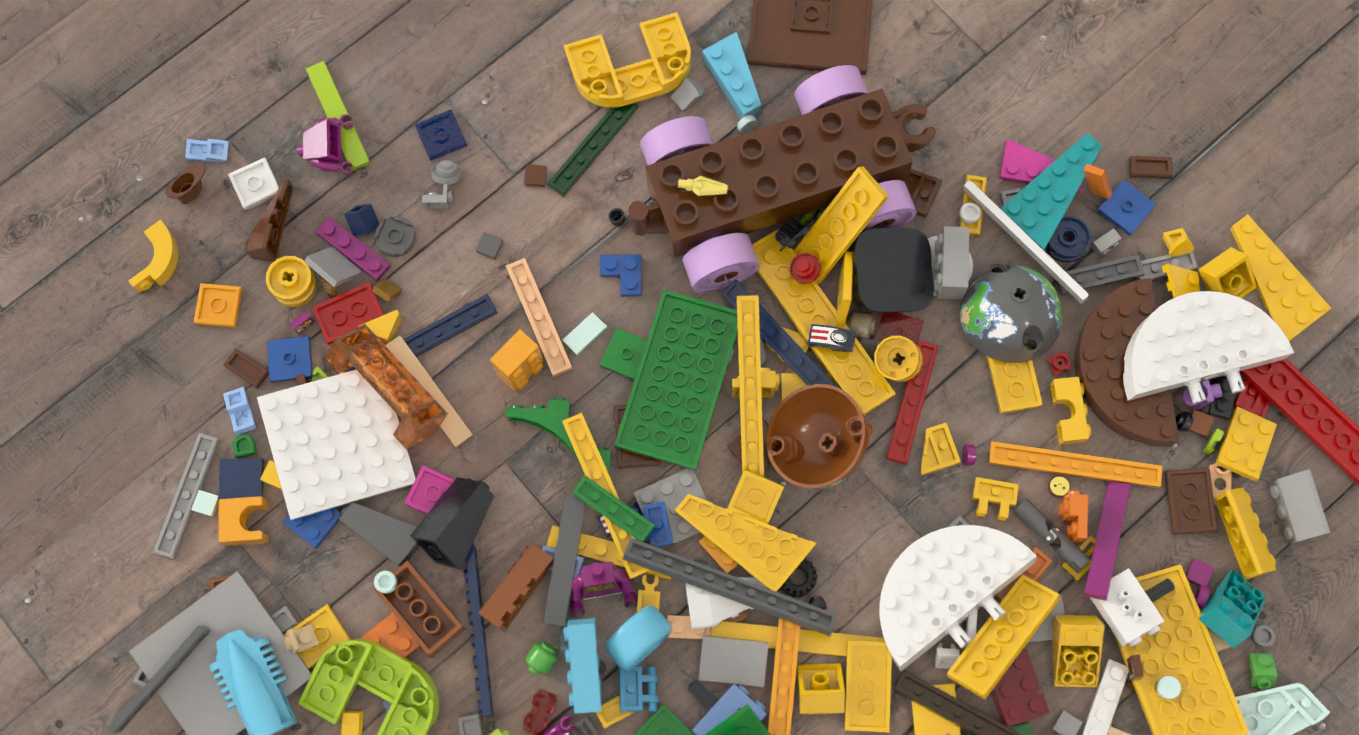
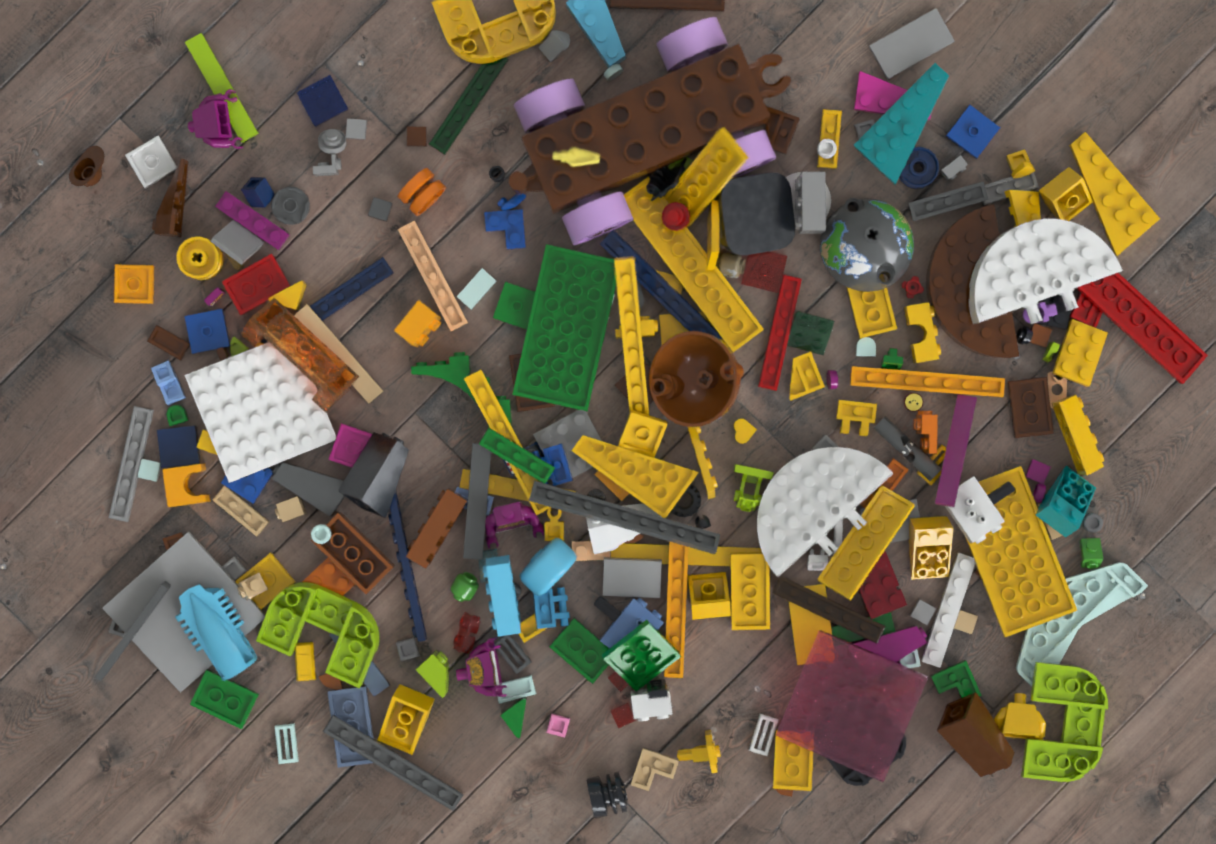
camera: 10 degrees left, 15 degrees up
(163, 261) = (77, 242): yellow arch -> none
(206, 151) = (101, 131): light blue slope -> none
(300, 555) = (241, 510): none -> tan tile
(355, 556) = (290, 509): none -> tan brick
(387, 290) = (289, 259): pearl gold tile -> none
(473, 164) = (356, 129): none -> light grey tile
(535, 227) = (421, 191): none -> orange wheel
(632, 246) = (513, 202): none -> blue arm
(820, 533) = (704, 463): none -> yellow wing
(831, 337) = (703, 282): slope -> none
(868, 505) = (744, 431): none -> yellow tile
(869, 346) = (740, 285): dark grey tile -> none
(875, 555) = (752, 475): none -> lime tile
(888, 352) = (764, 308): yellow wheel -> none
(946, 403) = (810, 333): none -> clear green hinge
(1007, 424) = (866, 347): none -> light aqua tile
(1025, 242) = (878, 175): white tile -> none
(1036, 438) = (891, 360): none -> green tile
(1062, 116) = (911, 43): none -> light grey tile
(1097, 181) = (945, 111): orange tile -> none
(1135, 667) = (979, 562): reddish brown tile -> none
(1150, 167) = (995, 89): reddish brown tile -> none
(1168, 687) = (1008, 577): light aqua tile -> none
(1299, 507) = (1125, 409): light grey slope -> none

